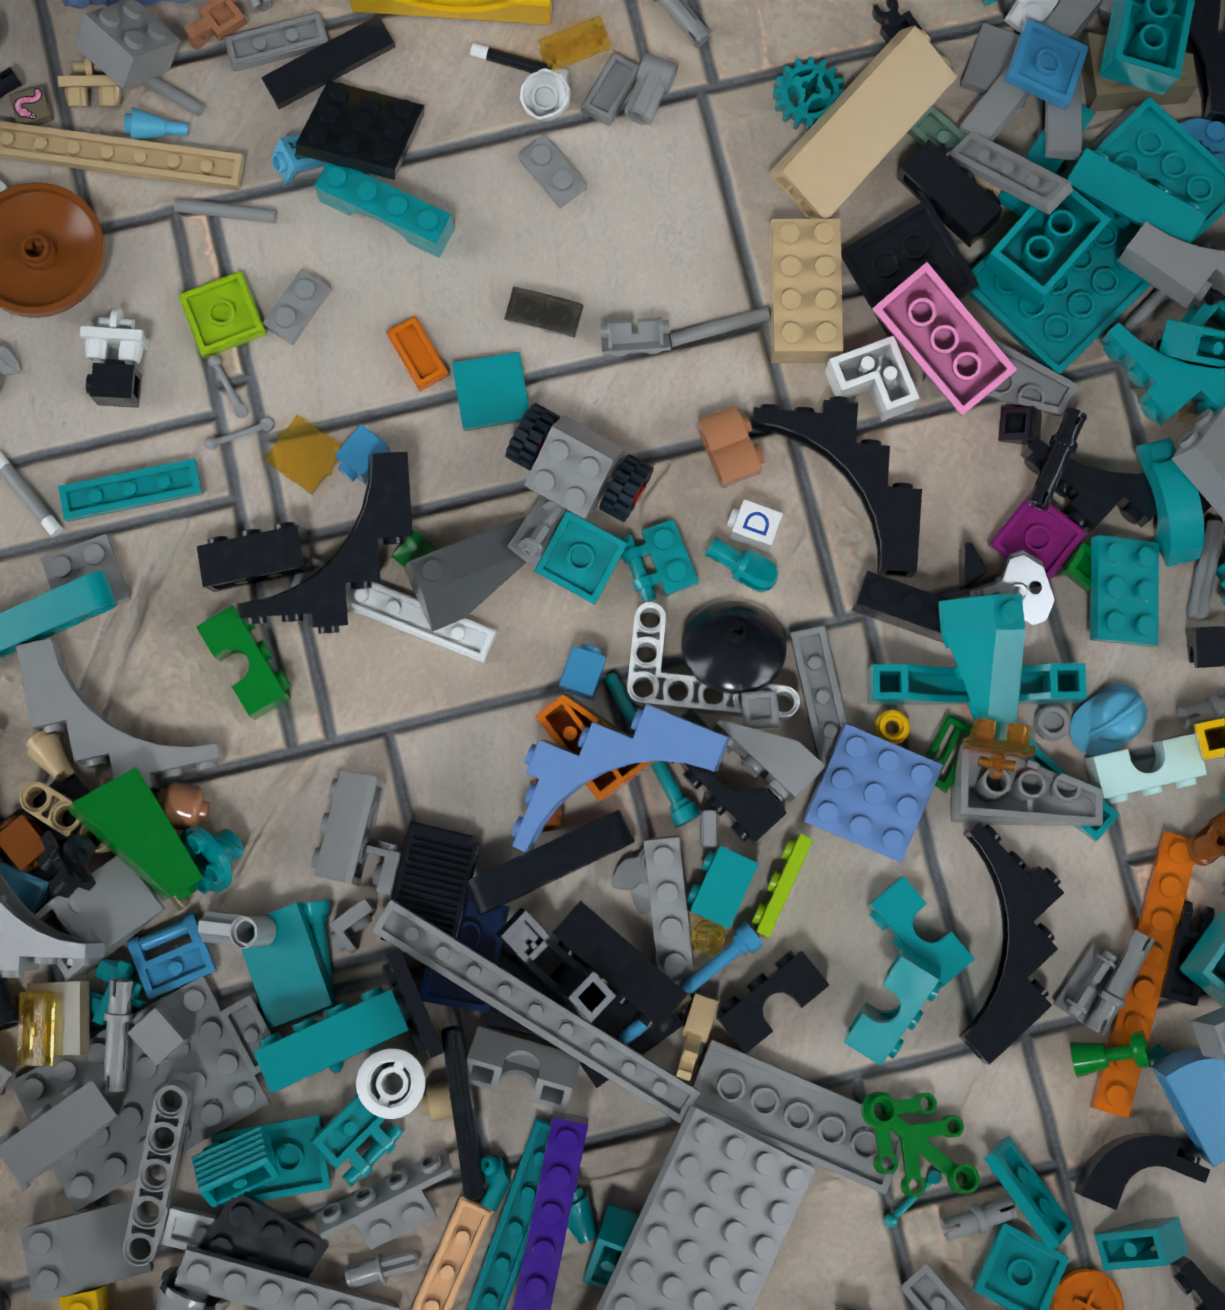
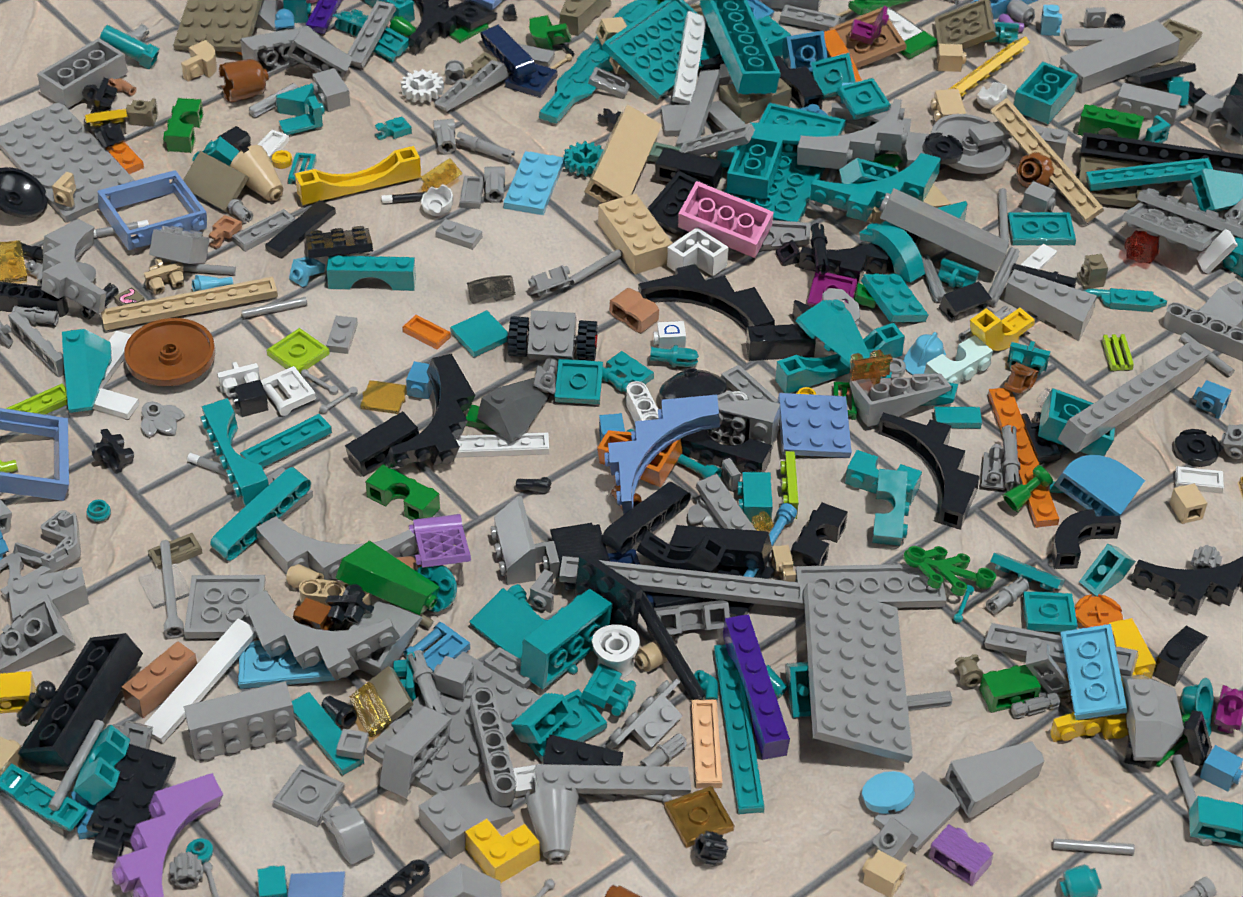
camera: 25 degrees left, 35 degrees down
(53, 421) = (221, 427): none -> teal arch
(184, 386) = (294, 388): none -> white plate
(236, 929) = (474, 612): light grey piece -> none
(266, 753) = (433, 531): none -> medium lavender piece
(428, 722) = (537, 485): none -> black arm
(711, 108) = (533, 183): none -> medium azure plate
(1046, 64) = (706, 101): dark azure plate -> none
(1092, 860) = (959, 416): none -> teal tile

